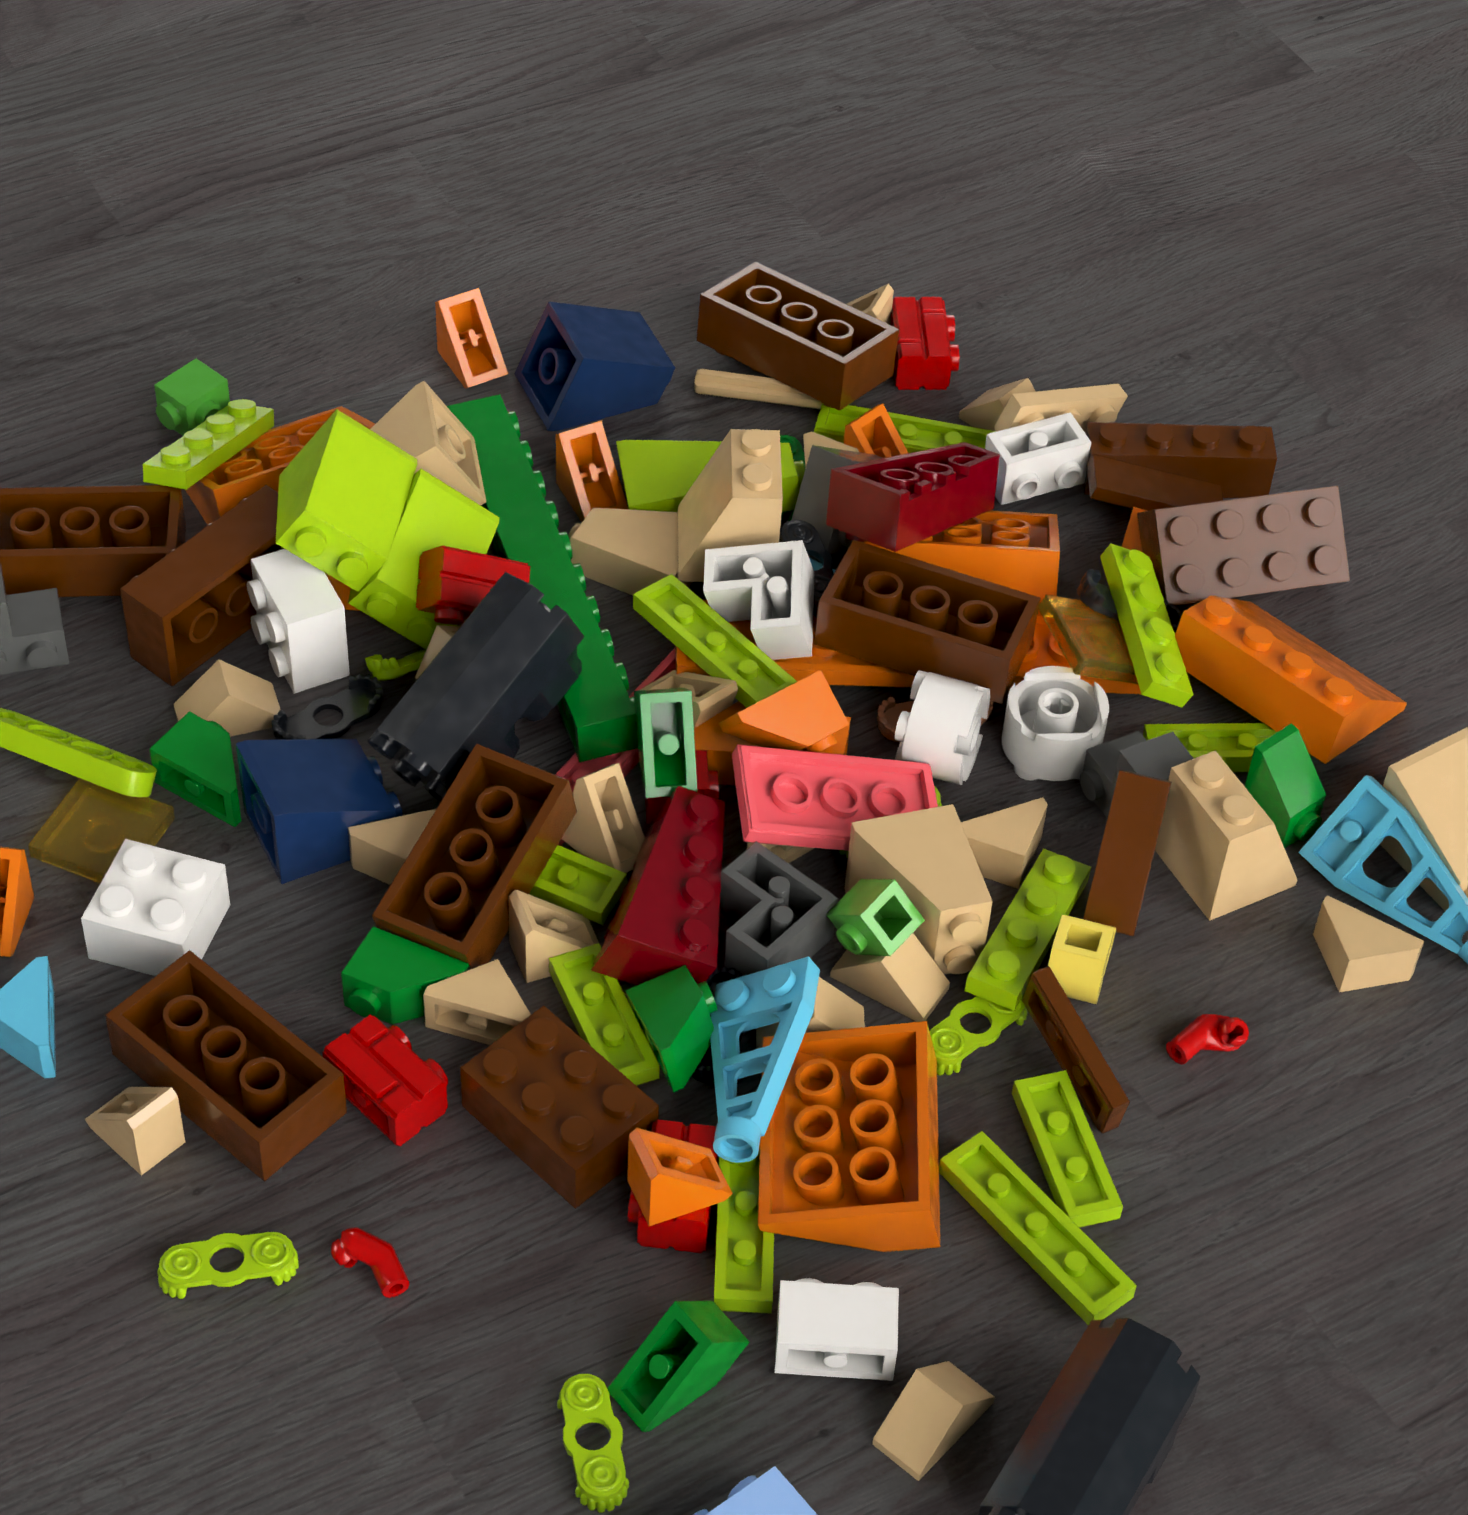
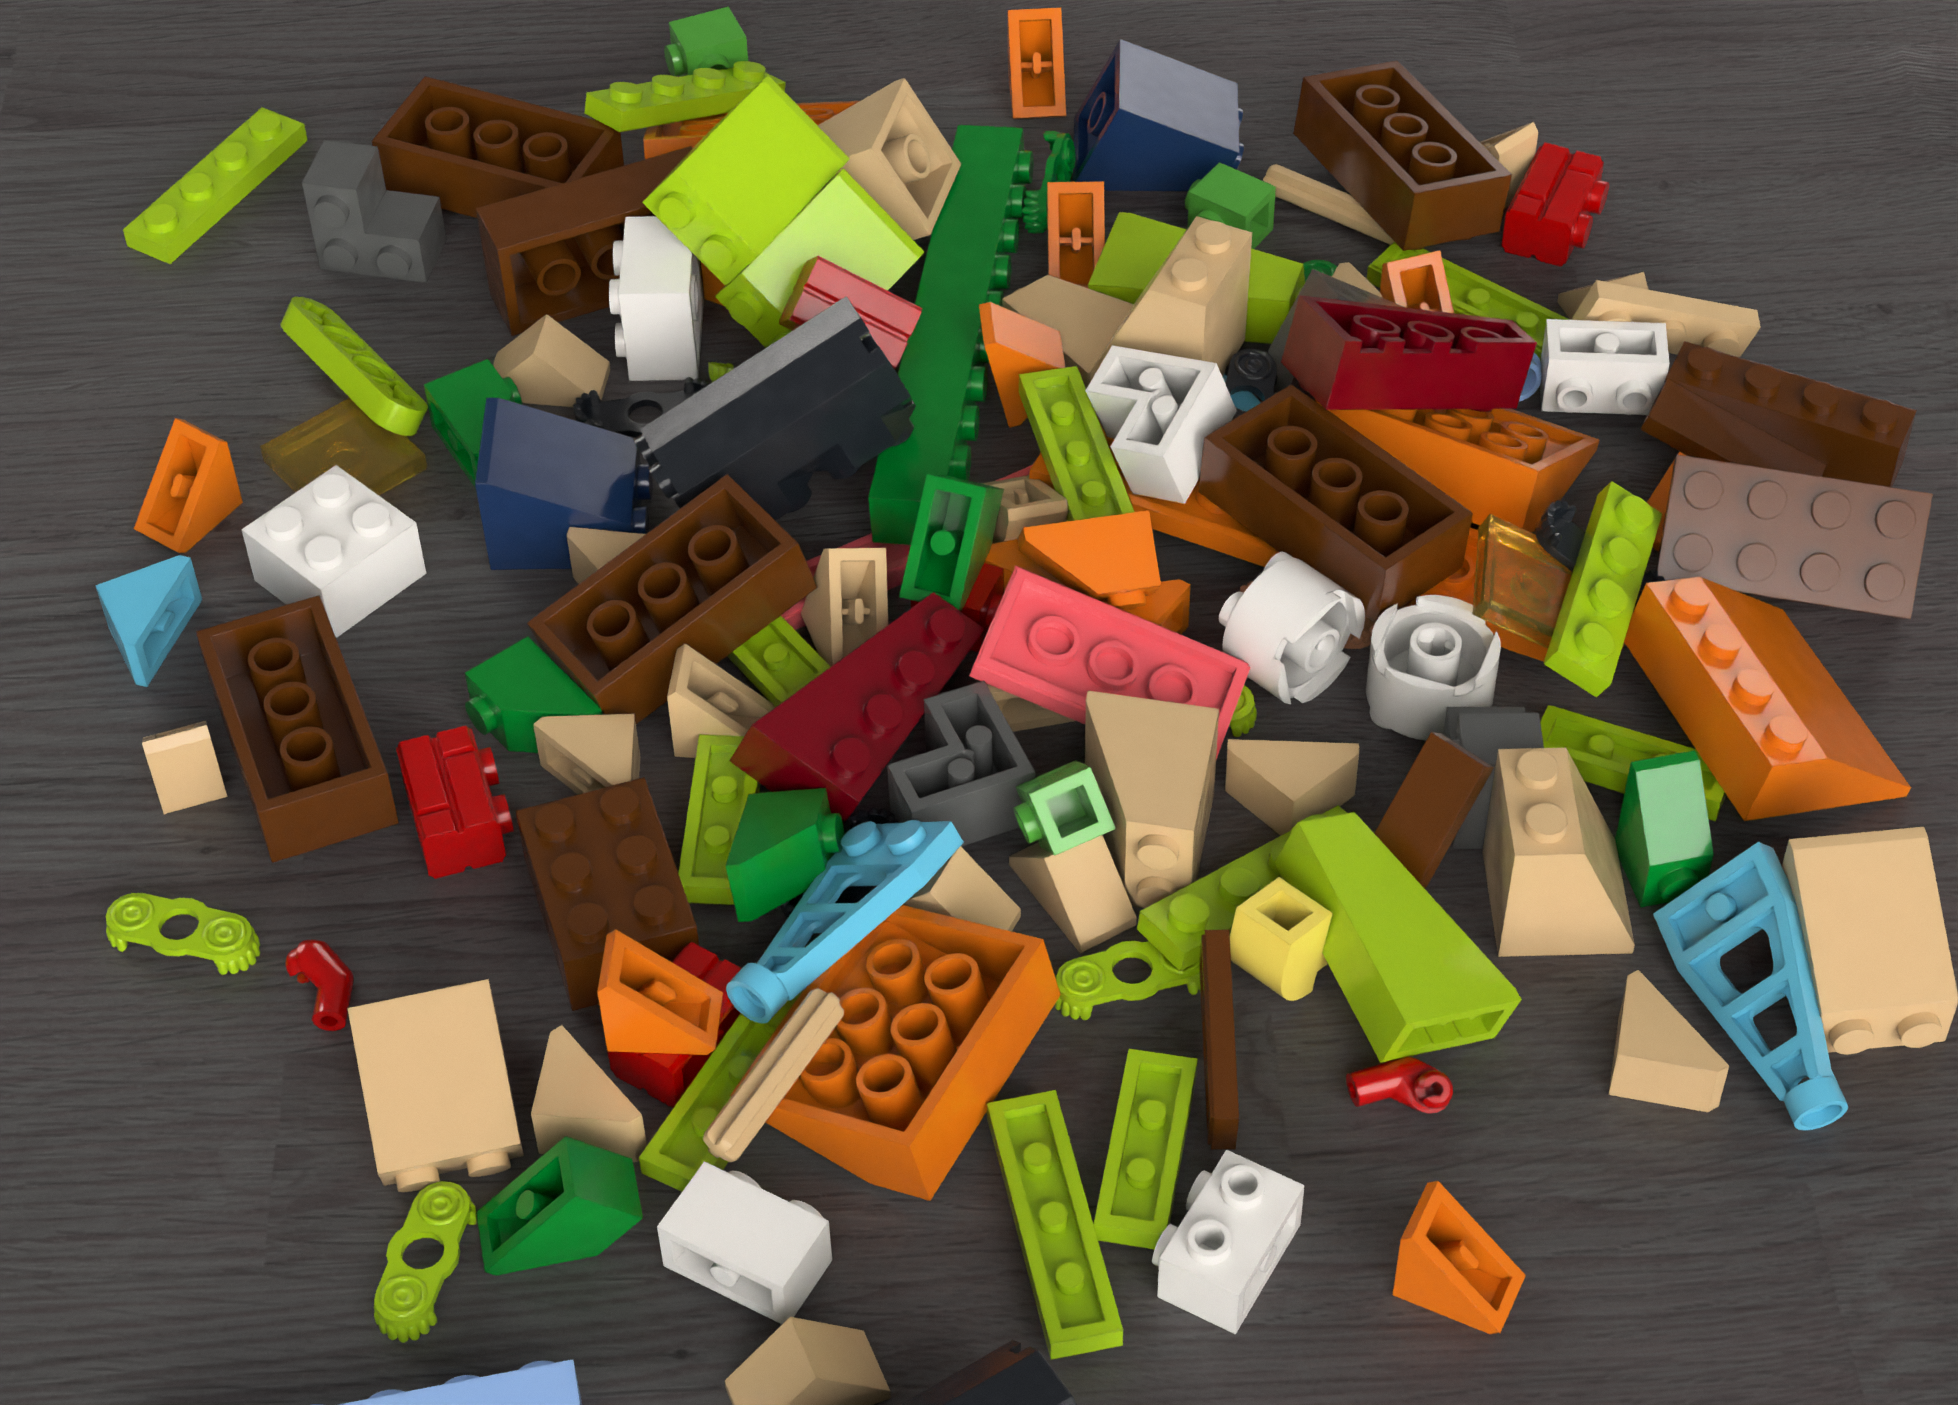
camera: 30 degrees right, 0 degrees up
(529, 1304) = (435, 1085): none -> tan slope
(531, 412) = (1059, 162): none -> green piece
(612, 579) = (1014, 348): none -> orange slope
(644, 1275) = (582, 1102): none -> tan slope
(687, 412) = (1234, 200): none -> bright green brick
(790, 1196) = (773, 1075): none -> tan axle
(1158, 939) = (1391, 945): none -> lime slope
(1165, 1193) = (1228, 1240): none -> white brick
(1321, 1151) = (1455, 1265): none -> orange slope

